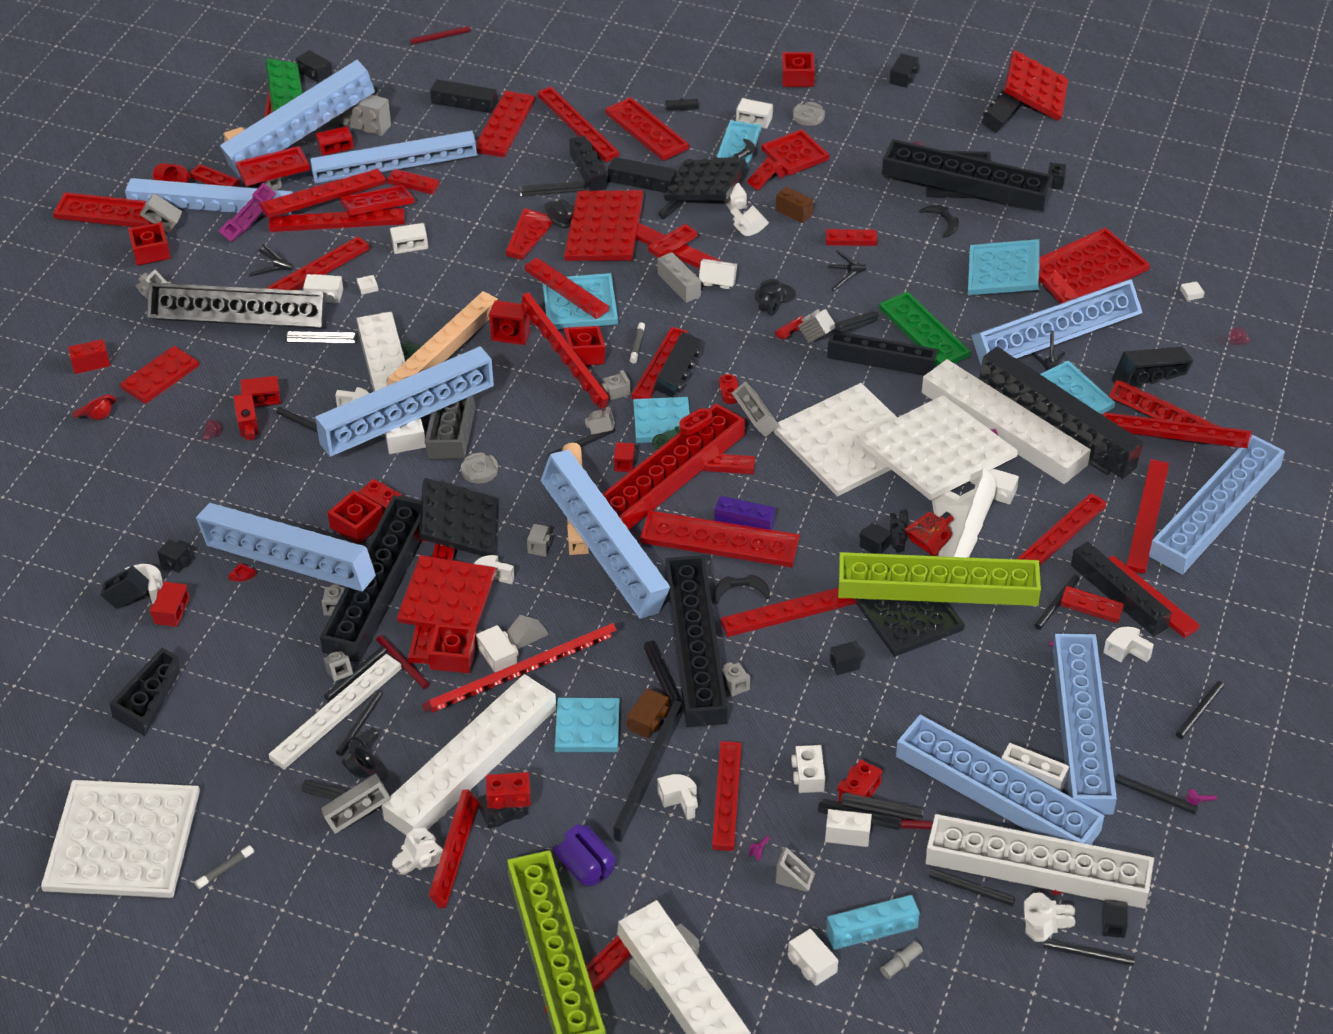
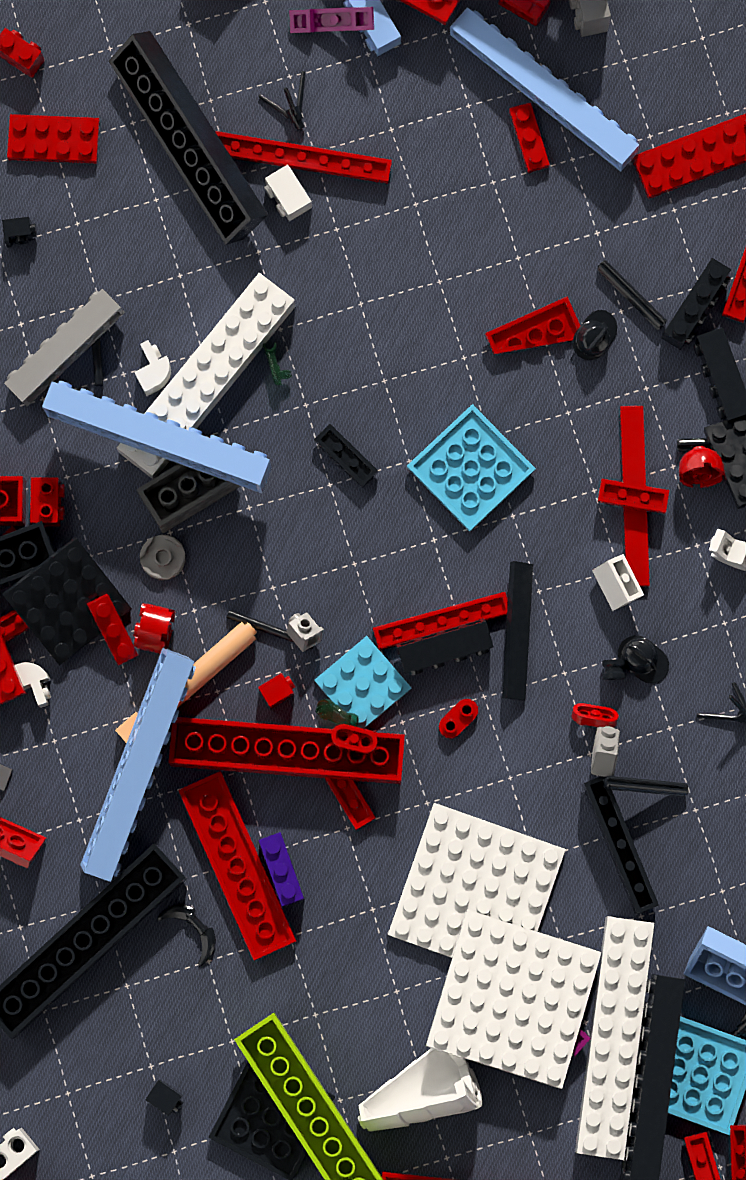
camera: 55 degrees right, 35 degrees up
(145, 278) = (158, 18): light grey brick -> none
(195, 417) = (18, 231): none -> black brick
(211, 429) = (17, 258): clear pink plate -> none
(246, 422) = (55, 279): red torso -> none
(263, 389) = (96, 263): red brick -> none
(294, 434) = (64, 347): none -> light grey brick
(321, 337) = (222, 250): axle -> none
(322, 193) = (426, 68): red plate -> none
(336, 220) = (407, 111): red plate -> none
(367, 284) = (334, 228): white tile -> none
(376, 200) = (463, 130): red tile -> none
(409, 238) = (431, 213): white brick -> none
(448, 339) = (280, 395): light nougat brick -> none
(463, 96) = (709, 73): black brick -> none
(500, 509) = (112, 629): none -> red plate
(509, 323) = (372, 428): red brick -> none
(512, 349) = (346, 455): none -> black plate
(522, 486) = (154, 628): none -> red brick
(539, 540) = (106, 694): light grey brick -> none
(564, 350) = (364, 515): red plate -> none
(566, 288) = (473, 443): red plate -> none
(586, 343) = (399, 530): red brick -> none
(604, 225) = (611, 399): red plate -> none
(616, 385) = (375, 611): light grey brick -> none
(637, 342) = (455, 574): dark grey bar -> none
(661, 672) = (30, 934): black axle -> none
(679, 277) = (583, 544): light grey brick -> none
(686, 205) = (701, 467): none -> red cylinder
(702, 333) = (517, 631): none -> black tile
(733, 675) = (69, 1019): light grey brick -> none
(755, 409) = (437, 773): light grey brick -> none
(784, 612) = (187, 990): red plate -> none
(874, 539) = (345, 1017): black brick -> none
(897, 530) = (376, 1032): black hinge -> none
(923, 328) = (699, 859): green plate -> none
(930, 532) = (387, 1072): red torso -> none
(1005, 485) = (512, 1091): white brick -> none

